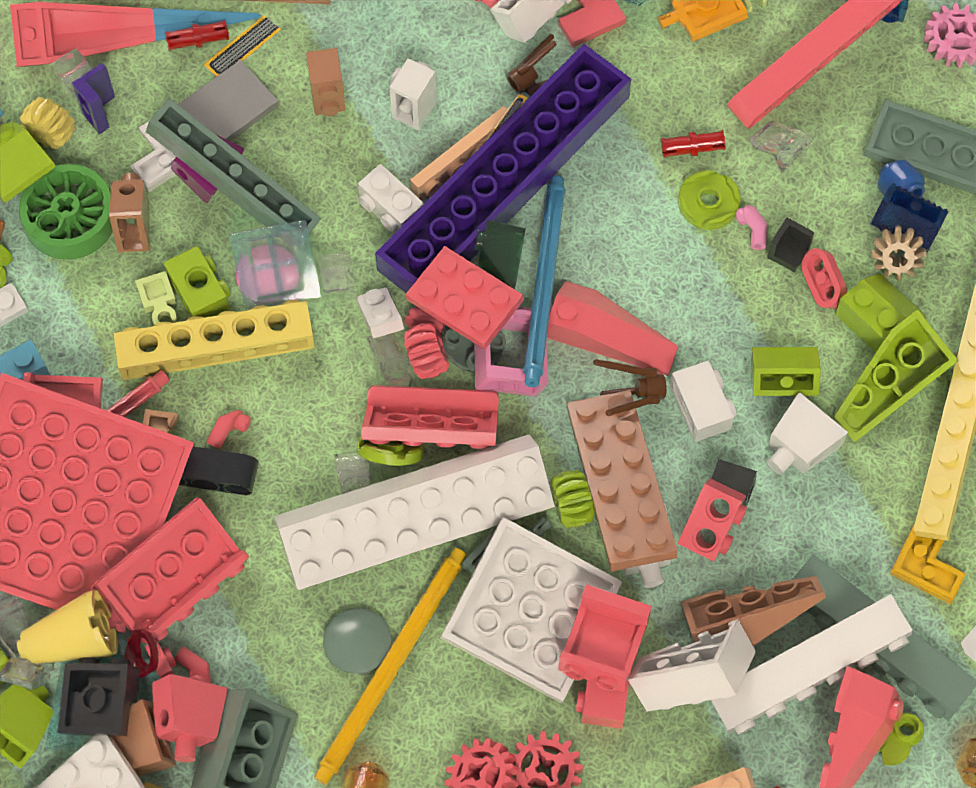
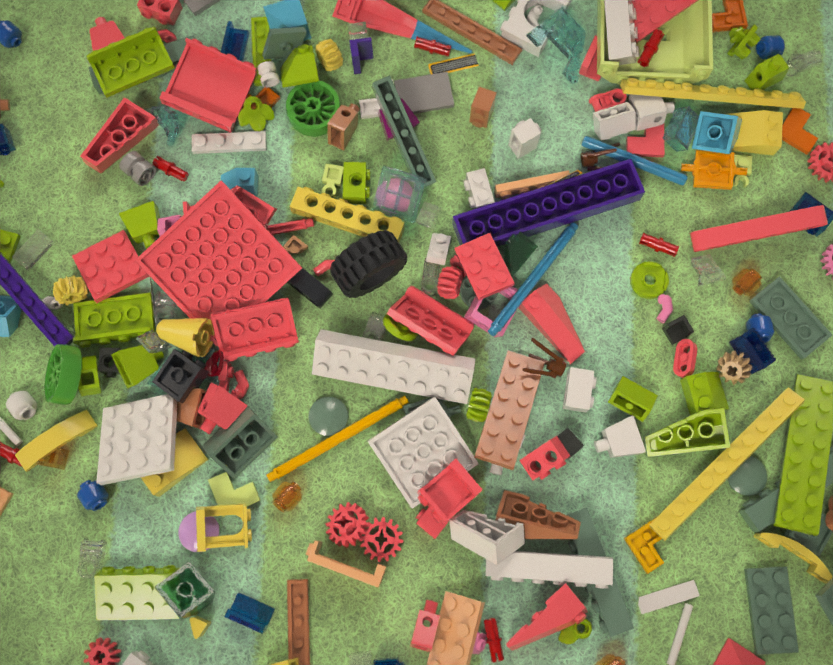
camera: 30 degrees right, 10 degrees up
(292, 382) = (368, 263): none -> black tyre
(601, 45) = (638, 161): none -> dark azure axle
(845, 130) = (746, 282): none -> clear orange head

